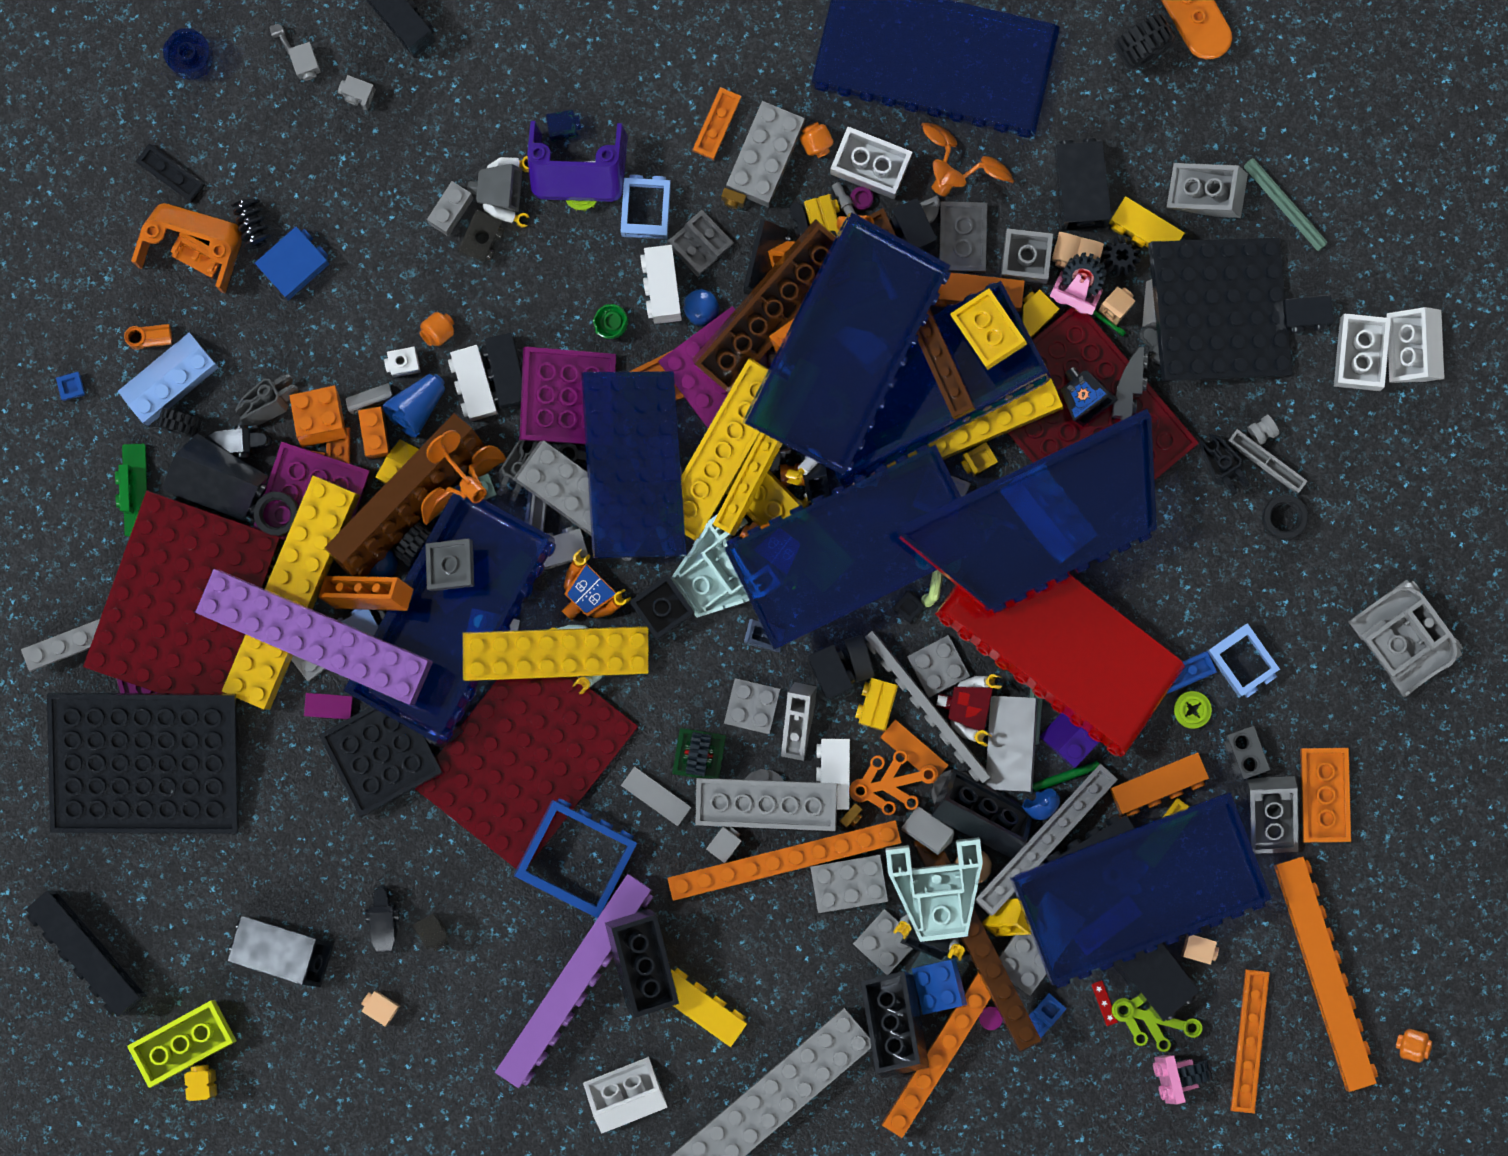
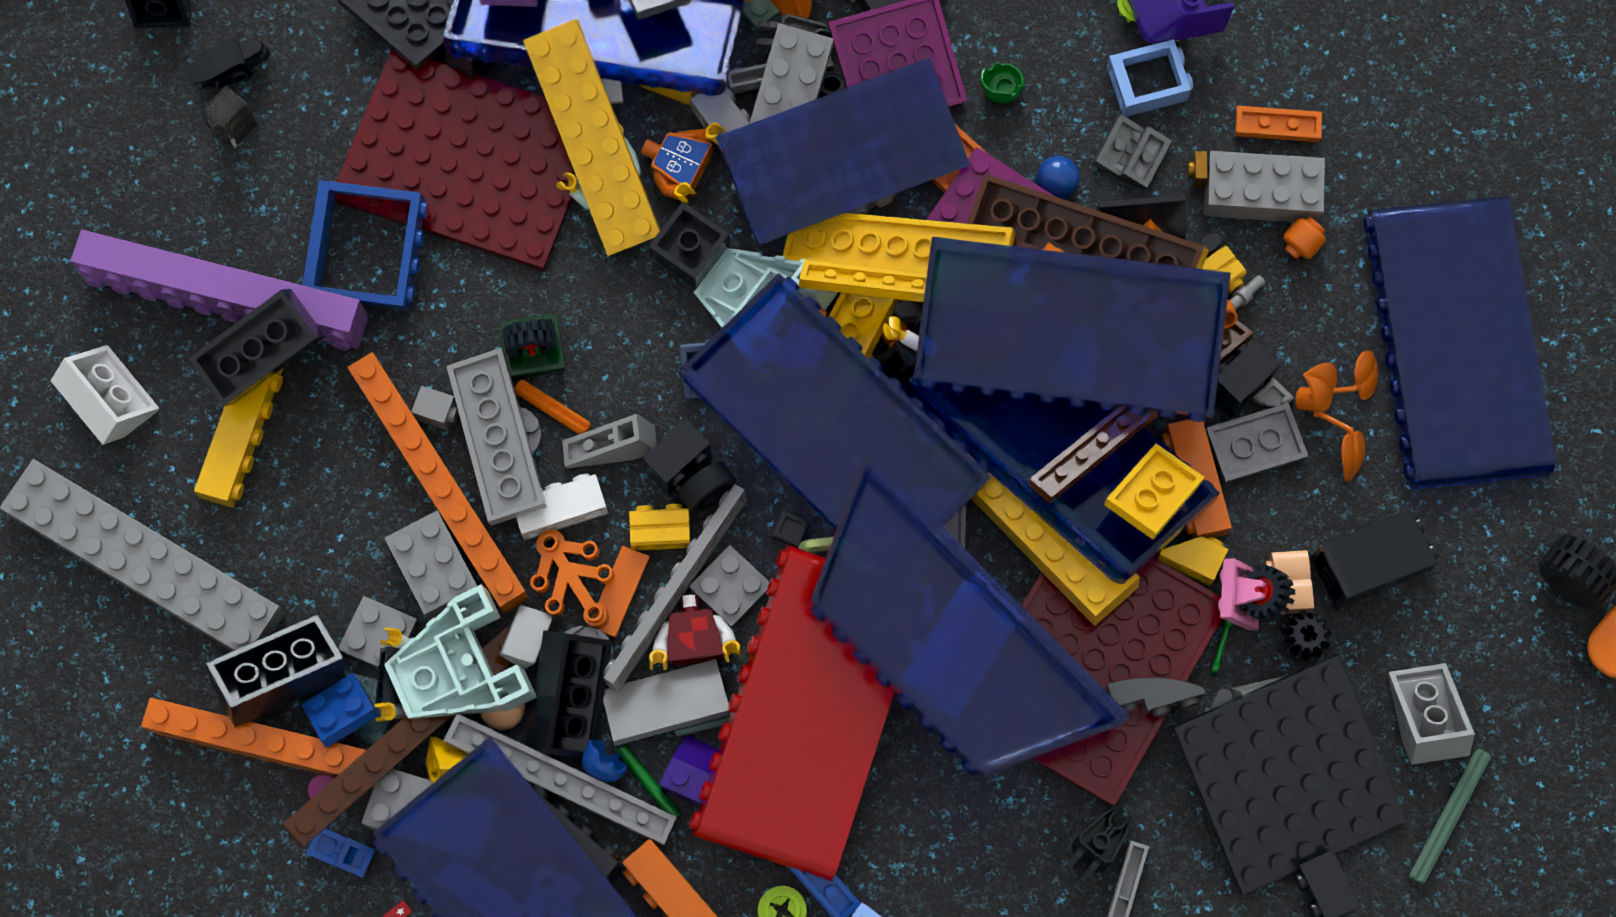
camera: 65 degrees right, 10 degrees down
(379, 1007) = (127, 94): light nougat brick -> none
(656, 796) = (468, 315): light grey tile -> none
(661, 284) = (1066, 120): white brick -> none
(752, 706) = (610, 388): light grey plate -> none
(753, 755) = (552, 407): none -> orange axle
(852, 816) = (516, 543): pearl gold plate -> none
(862, 198) = (1256, 314): magenta tile -> none
(871, 162) = (1301, 306): white brick -> none
(978, 460) = (995, 549): yellow bracket -> none
(1026, 256) = (1262, 521): light grey brick -> none
(1086, 396) = (1118, 644): torso -> none
(1117, 305) = (1245, 649): light nougat slope -> none
(1142, 224) = (1356, 645): yellow brick -> none
(1263, 430) = (1160, 881): light grey wheel -> none

